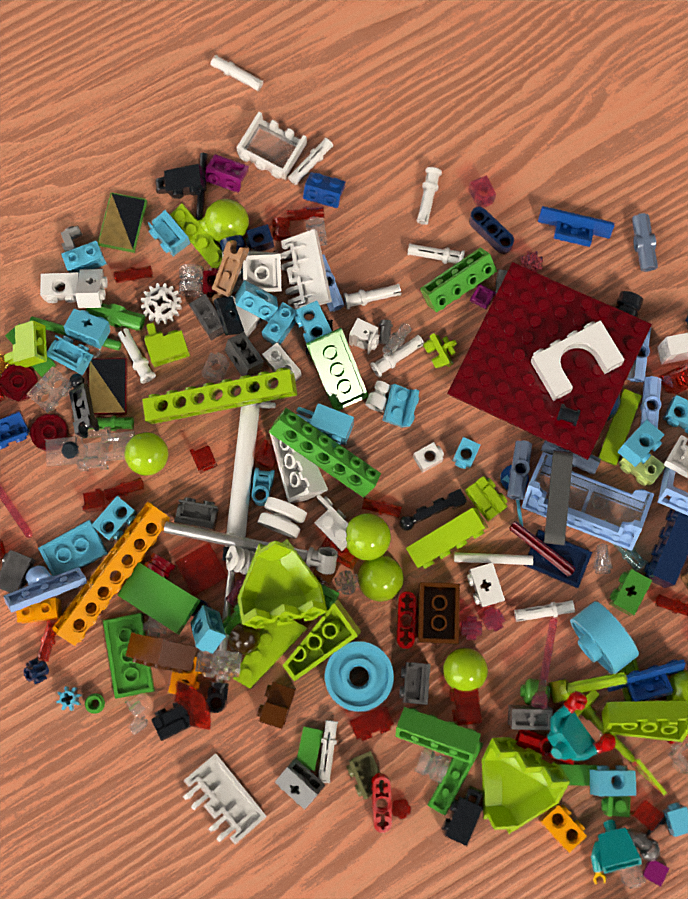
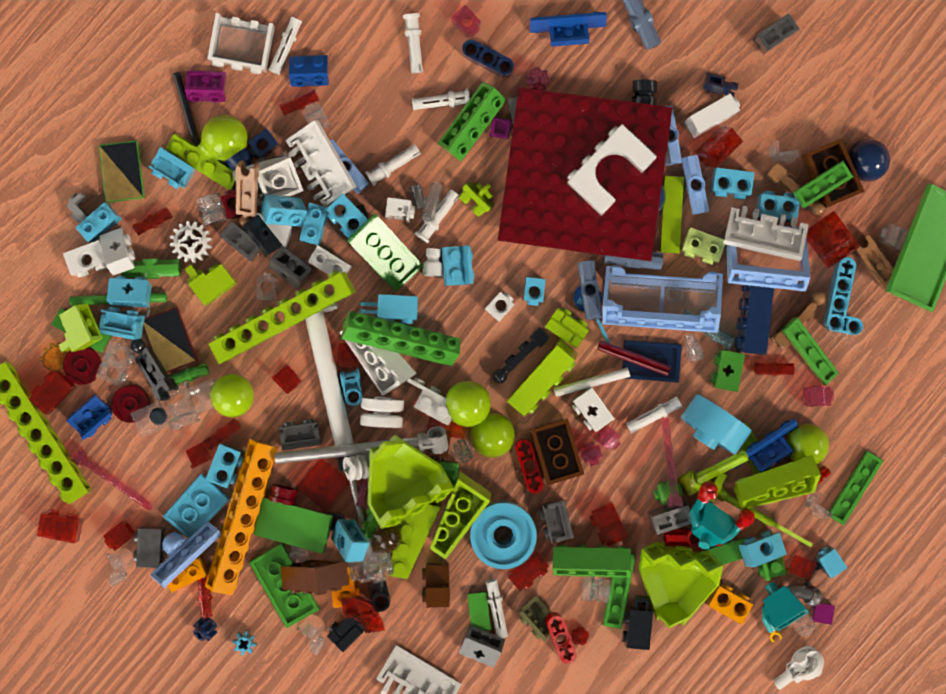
camera: 15 degrees left, 10 degrees up
(88, 703) = (267, 644): bright green plate -> none
(139, 363) = (192, 307): white pin -> none
(182, 181) = (166, 111): black brick -> none
(281, 228) = (281, 126): clear red wheel -> none
(381, 507) = (471, 369): clear red pin -> none
(465, 669) = (598, 493): lime piece -> none
(558, 497) = (634, 307): dark grey beam -> none
(568, 414) = (619, 226): black bush -> none
(648, 436) = (699, 218): medium azure brick -> none

